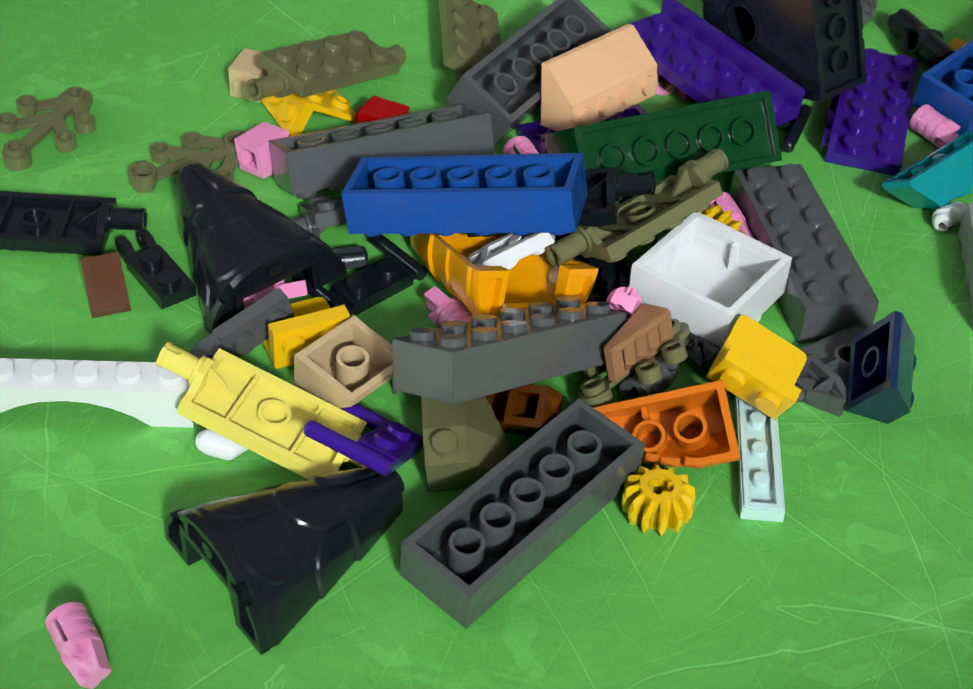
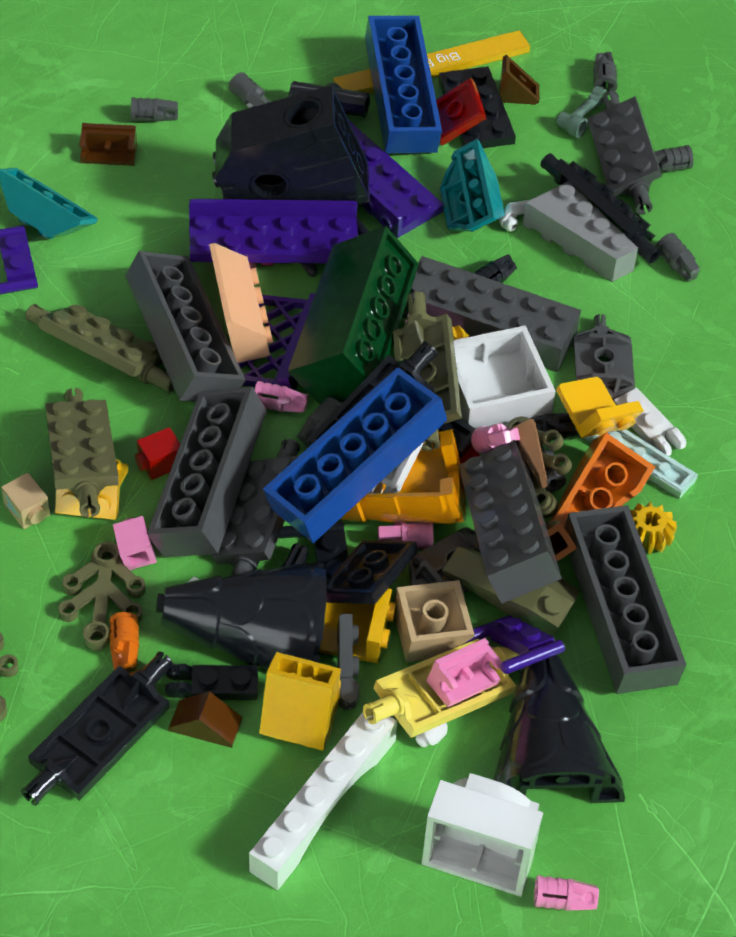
camera: 55 degrees left, 10 degrees up
(84, 511) = (482, 833): none -> white container
(151, 191) = (124, 640): none -> orange hinge
(157, 306) = (300, 701): none -> yellow brick
(282, 407) = (464, 672): none -> bright pink hinge
(362, 294) = (369, 571): none -> black tile
(813, 438) = (652, 424): none -> white hinge
(864, 234) = (498, 269): none -> black hinge
(882, 370) = (641, 351): dark blue slope -> none
(933, 126) = (424, 159): bright pink hinge -> none

